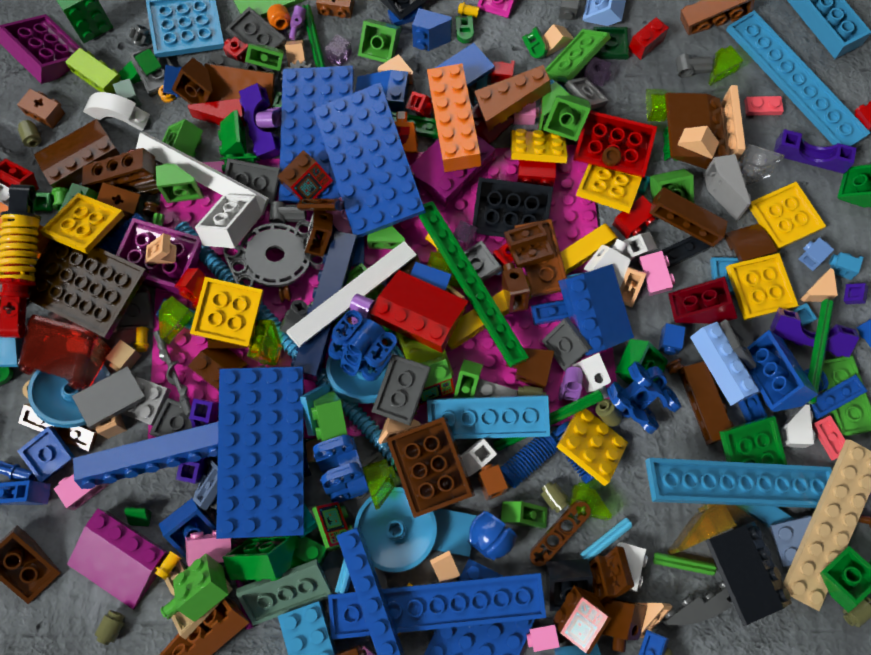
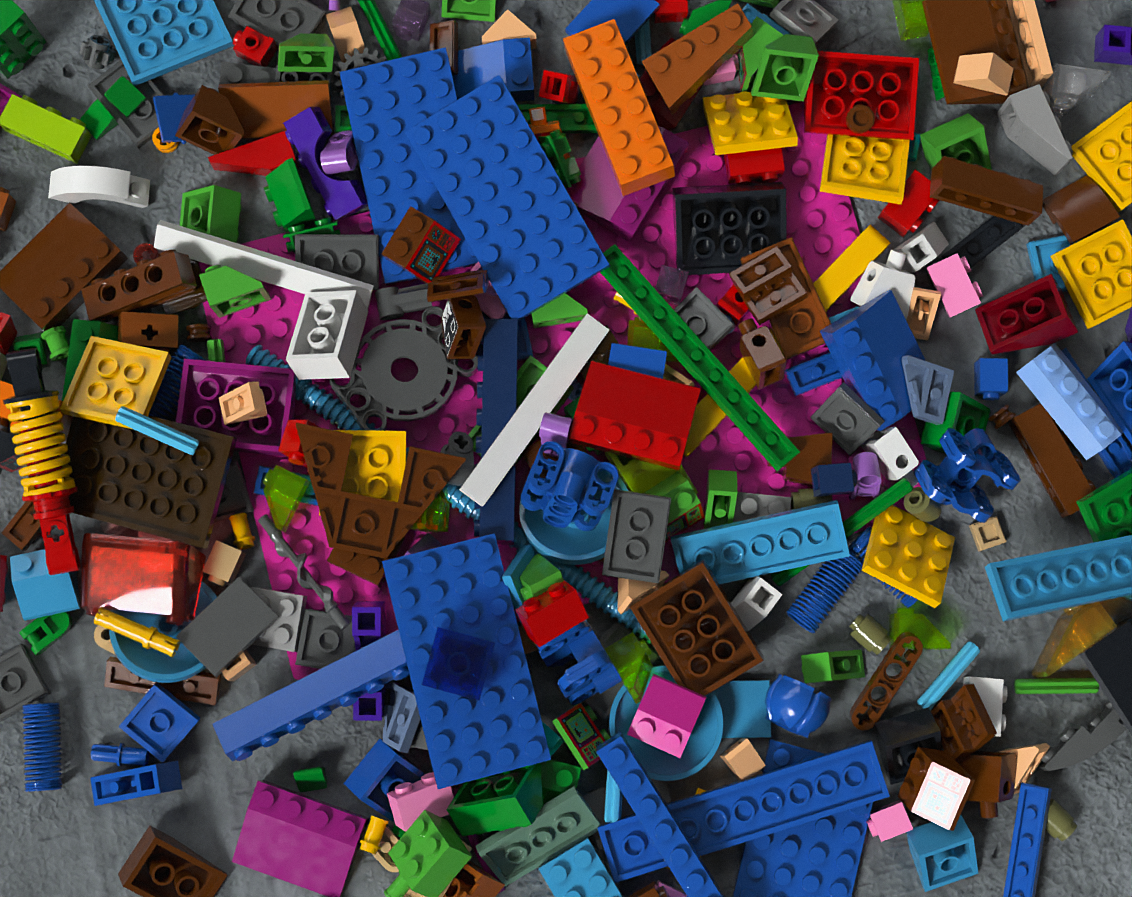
camera: 15 degrees left, 10 degrees up
(52, 392) = (146, 636): none -> yellow pin
(72, 495) = (211, 762): bright pink brick -> none
(95, 253) = (157, 430): none -> medium azure axle
(127, 90) = (105, 151): sand green brick -> none
(221, 344) = (362, 521): none -> reddish brown wing
(250, 447) = (458, 663): none -> clear blue brick
(285, 293) = (432, 424): reddish brown bush -> none
(327, 427) = (552, 613): none -> red brick
(358, 64) = (446, 35): none -> reddish brown tile
(394, 522) = (666, 715): none -> dark pink slope
(408, 136) = (555, 147): none -> green hinge
(492, 481) = (782, 632): dark orange brick -> none
(548, 380) = (833, 479): none -> dark blue brick
(625, 334) = (927, 388): none -> sand blue wing
(652, 445) = (987, 534): none -> tan tile
(738, 344) = (1084, 370): dark grey tile -> none

